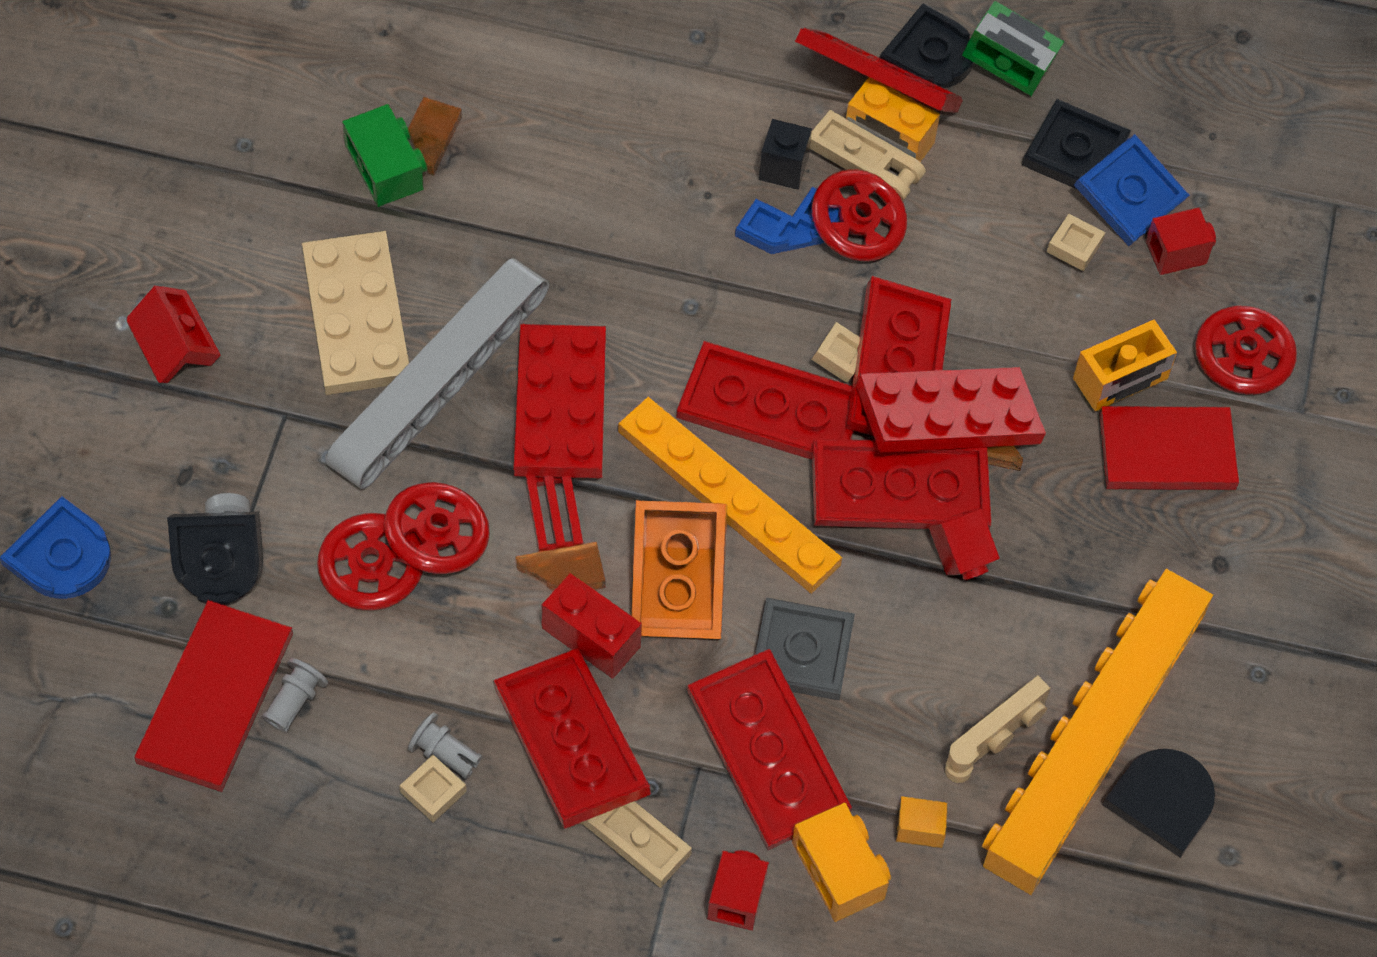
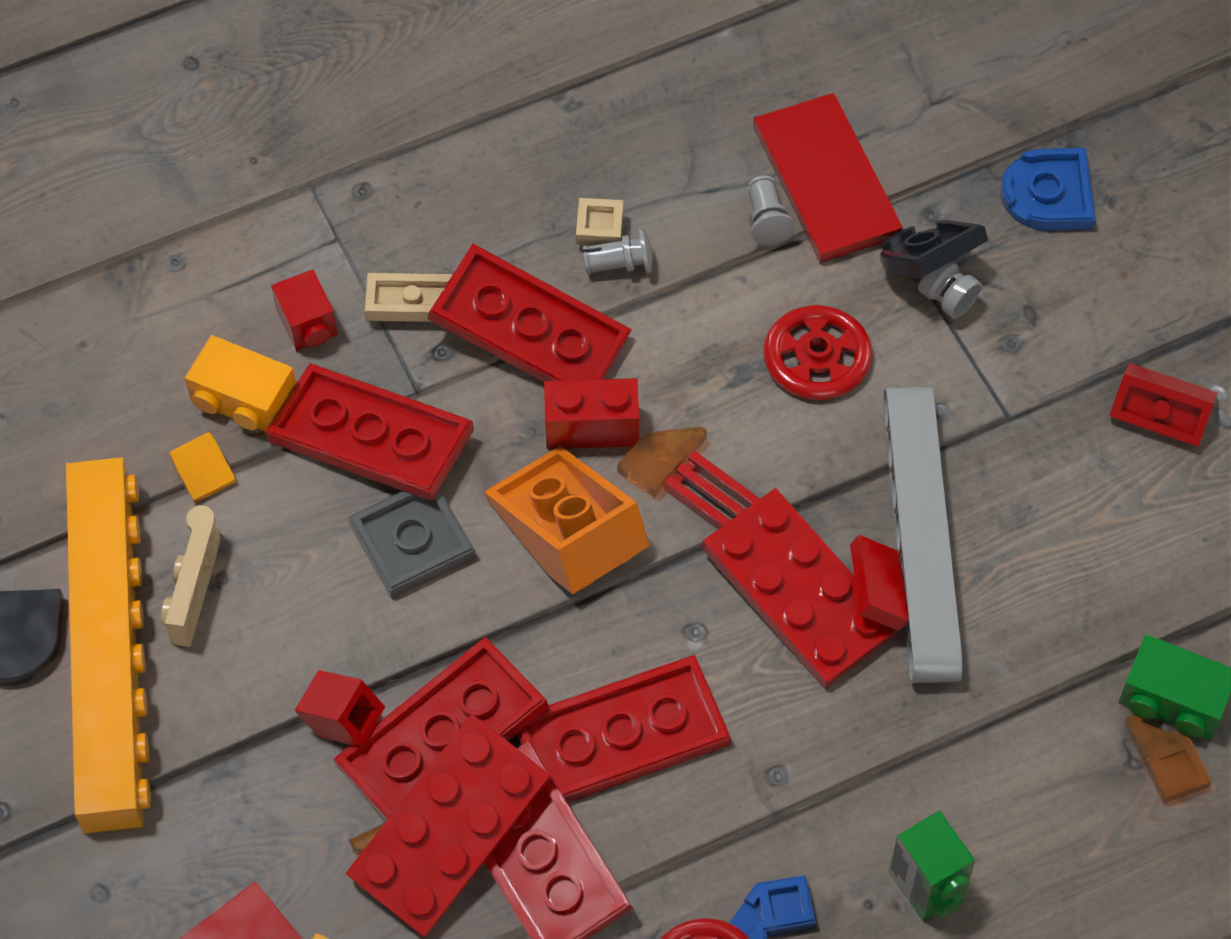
camera: 145 degrees right, 0 degrees up
(355, 311) = (1048, 539): tan plate -> none
(426, 556) = (784, 442): red plate -> none
(508, 352) = (879, 583): none -> red tile
(660, 155) = (932, 867): none -> green brick
(716, 481) = (586, 620): light orange plate -> none
(838, 352) = (602, 816): tan plate -> none

